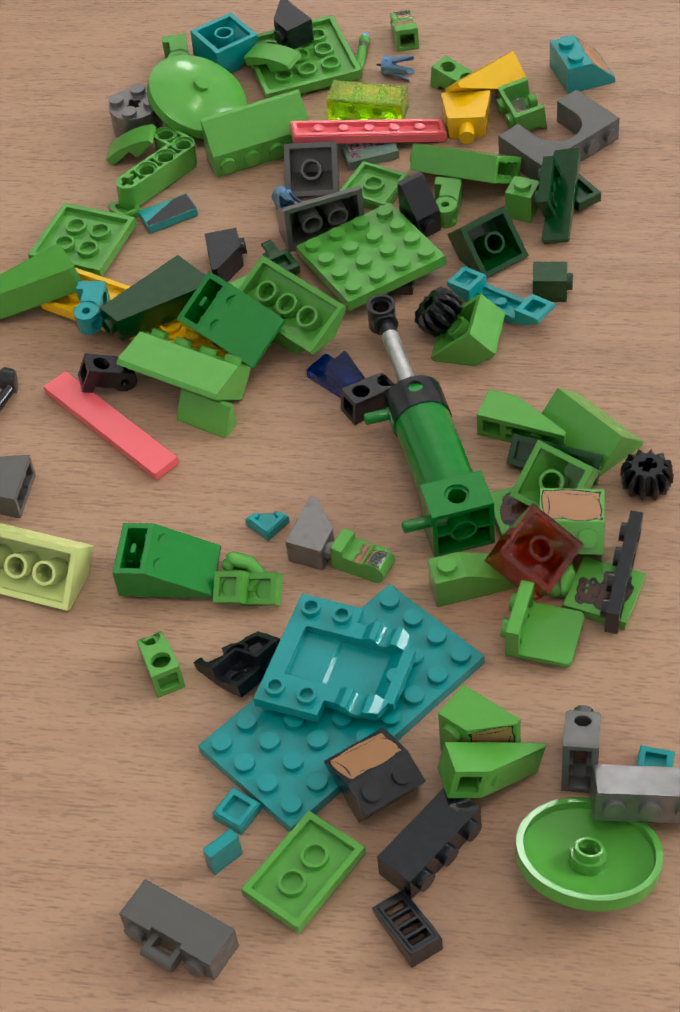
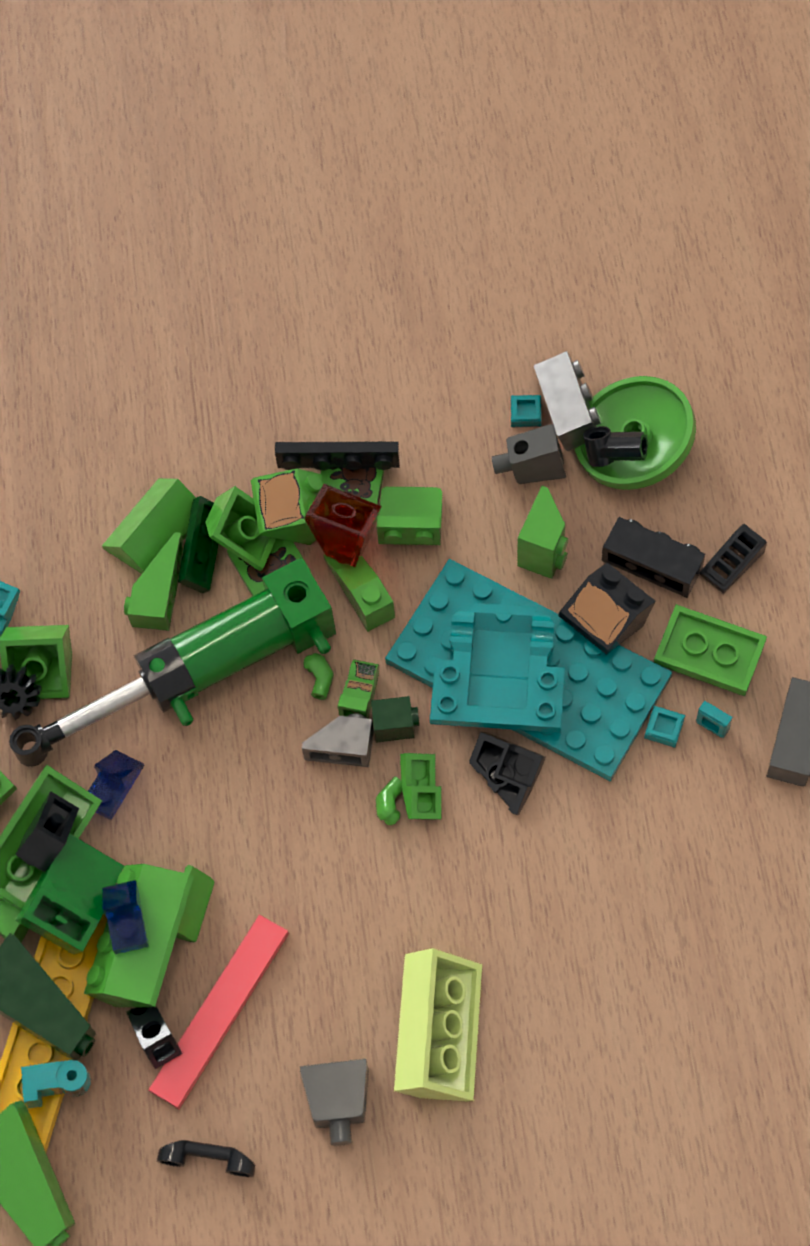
camera: 105 degrees left, 15 degrees up
(161, 664) = (527, 842): bright green leg -> none
(164, 563) = (411, 874): green slope -> none
(197, 346) = (125, 917): none -> clear blue slope
(267, 524) = (328, 798): teal tile -> none
(285, 301) = (47, 832): none -> black slope
(322, 575) = (394, 719): none -> dark green brick
(364, 397) = (143, 739): black leg -> none
(388, 536) = (323, 673): none -> bright green arm
(486, 767) = (585, 520): bright green slope -> none
(565, 815) = (606, 446): none -> black piece
(646, 474) = (198, 466): black gear -> none

